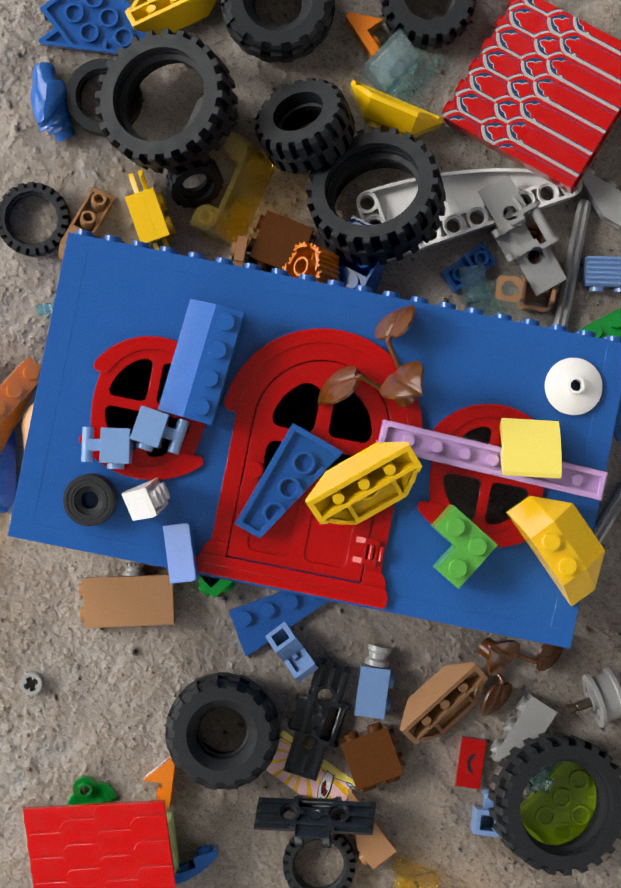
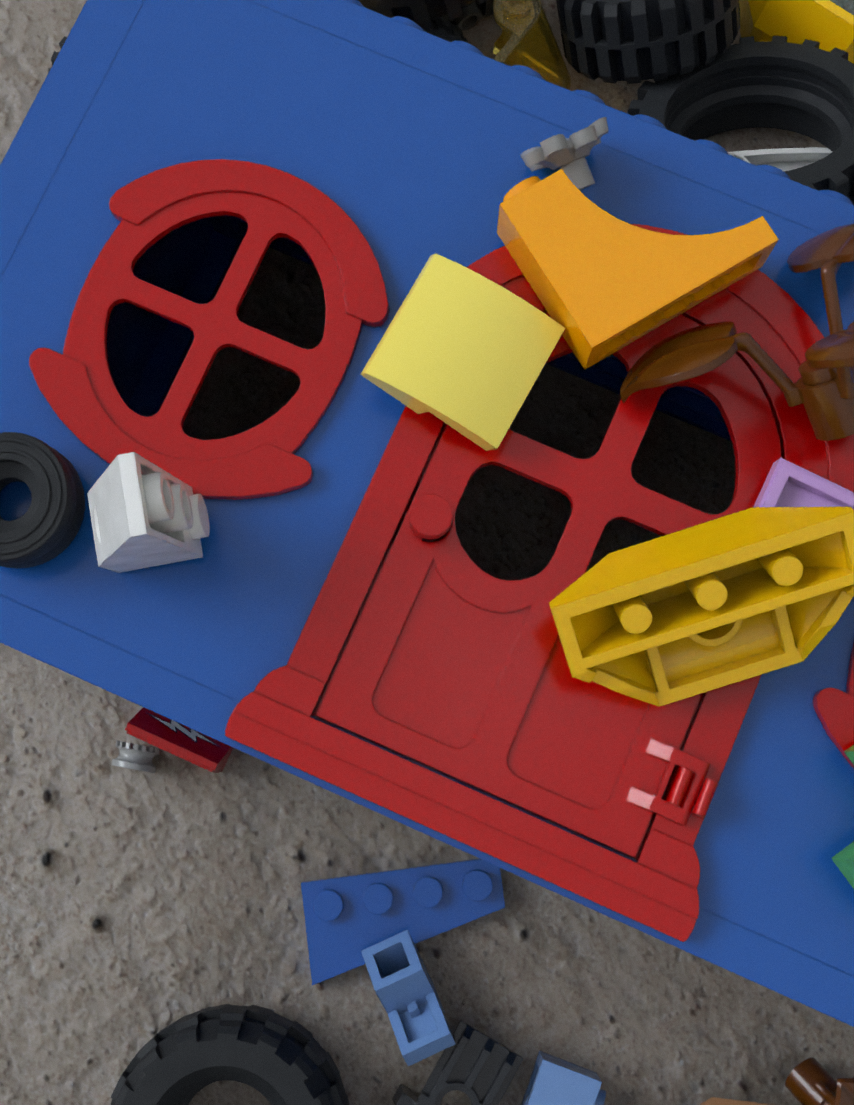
camera: 15 degrees right, 10 degrees down
(114, 446) = (101, 383): medium blue brick -> none
(127, 601) = (108, 817): medium nougat brick -> none
(152, 428) = (210, 357): medium blue brick -> none
(181, 553) = (202, 680): slope -> none
(202, 361) = (368, 233): blue slope -> none
(221, 585) = (304, 827): green bracket -> none
(252, 402) = (463, 351): none -> light yellow slope
(276, 308) = (568, 153): none -> light grey plant
(289, 474) = (514, 545): blue wing -> none
(303, 360) = (612, 277): none -> light orange arch
(378, 655) = (580, 1044): light grey wheel -> none

